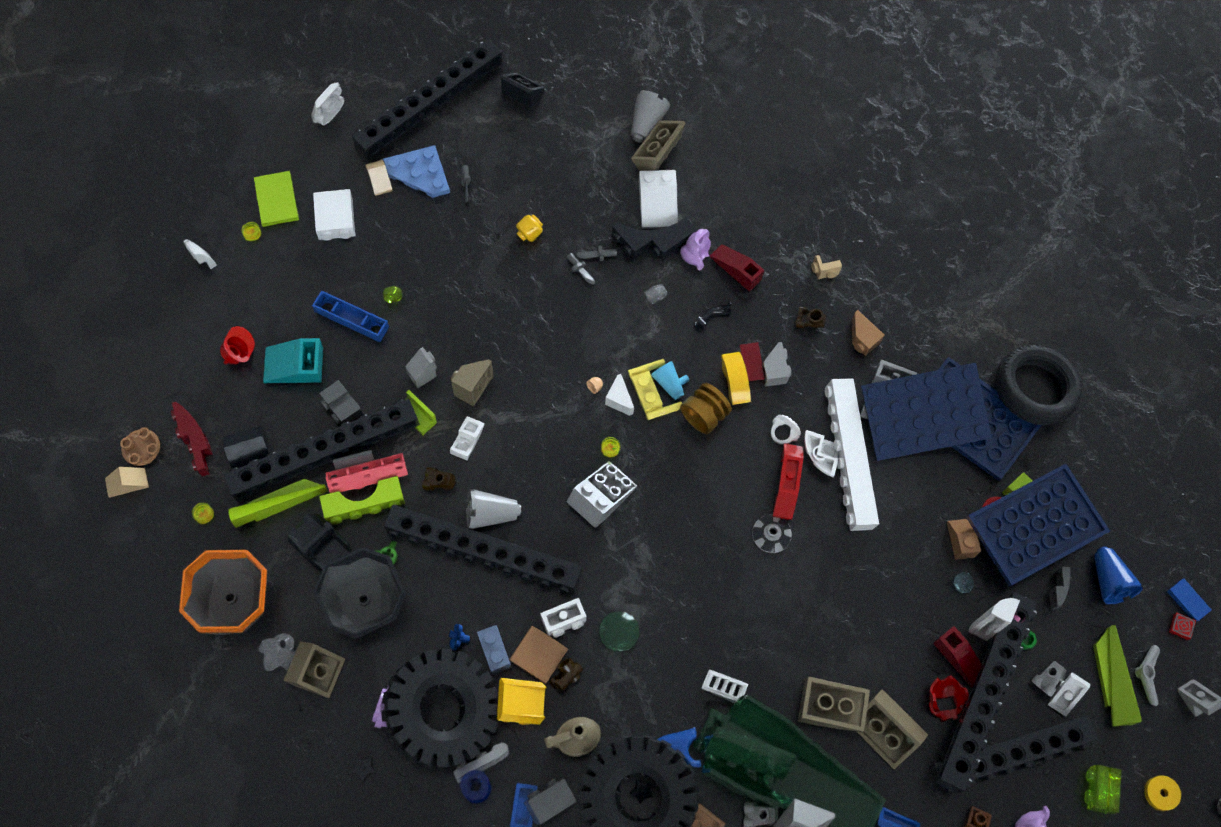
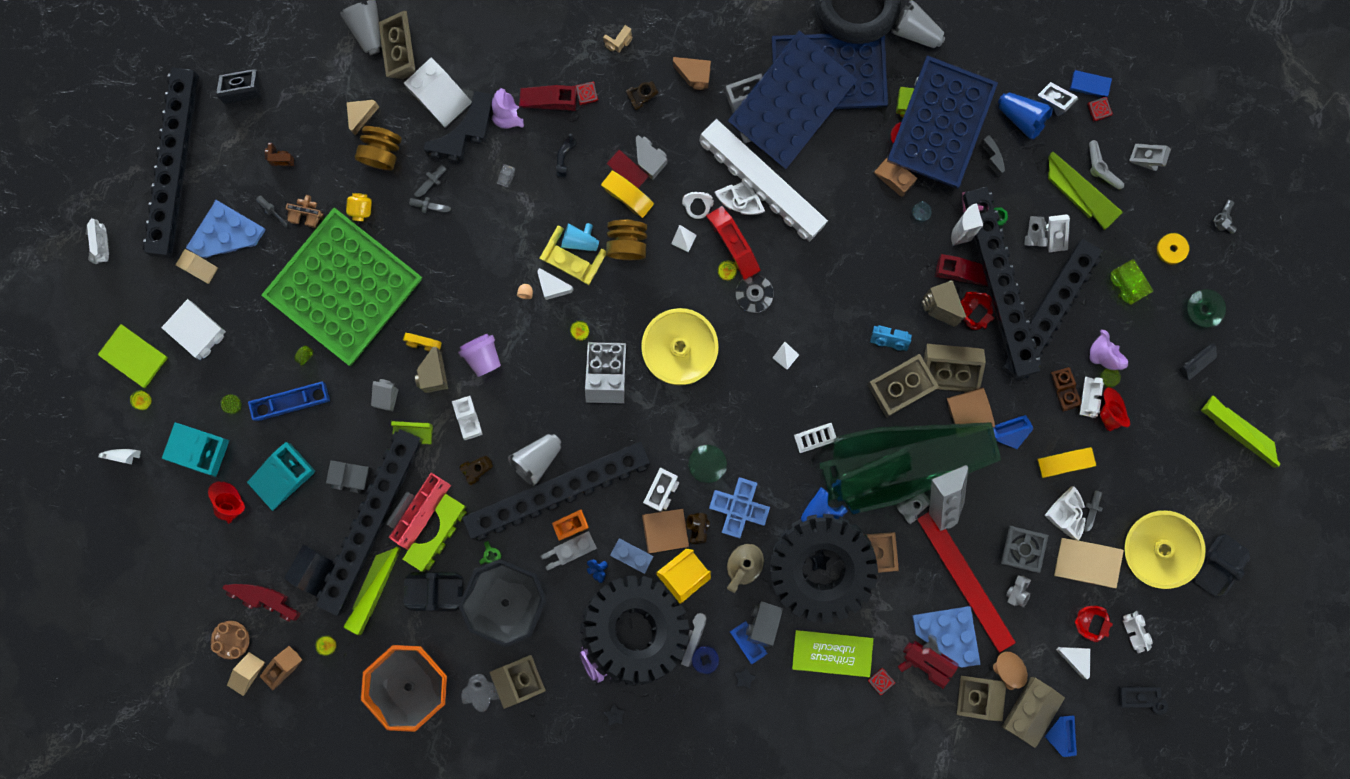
camera: 35 degrees left, 15 degrees up
(154, 498) = (280, 667): none -> medium nougat slope
(254, 294) = (195, 449): none -> teal slope
(309, 285) = (231, 404): none -> clear neon green tile
(451, 604) = (571, 550): none -> light grey hinge
(465, 272) = (342, 286): none -> bright green plate
(468, 583) = (570, 525): none -> orange slope
(481, 350) = (415, 340): none -> yellow plate
(490, 199) = (295, 212): none -> medium nougat hips
(505, 153) = (281, 158): none -> reddish brown bracket
(519, 399) = (481, 354): none -> lavender piece
(580, 199) = (379, 143): none -> pearl gold wheel
(589, 169) = (359, 113): none -> tan slope
(613, 688) = (739, 507): none -> medium blue plate
(677, 521) = (679, 346): none -> light yellow dish
(751, 446) = (683, 238): none -> white slope
(756, 601) = (785, 356): none -> white slope
(765, 497) = (727, 270): none -> clear neon green tile
(768, 286) = (586, 93): none -> tile
(859, 667) = (882, 337): none -> dark azure hinge
(878, 774) = (970, 407): none -> medium nougat slope
(923, 666) = (944, 304): none -> dark tan slope
(1074, 441) = (918, 26): none -> light grey cone
(1153, 587) = (1057, 98): none -> light grey slope

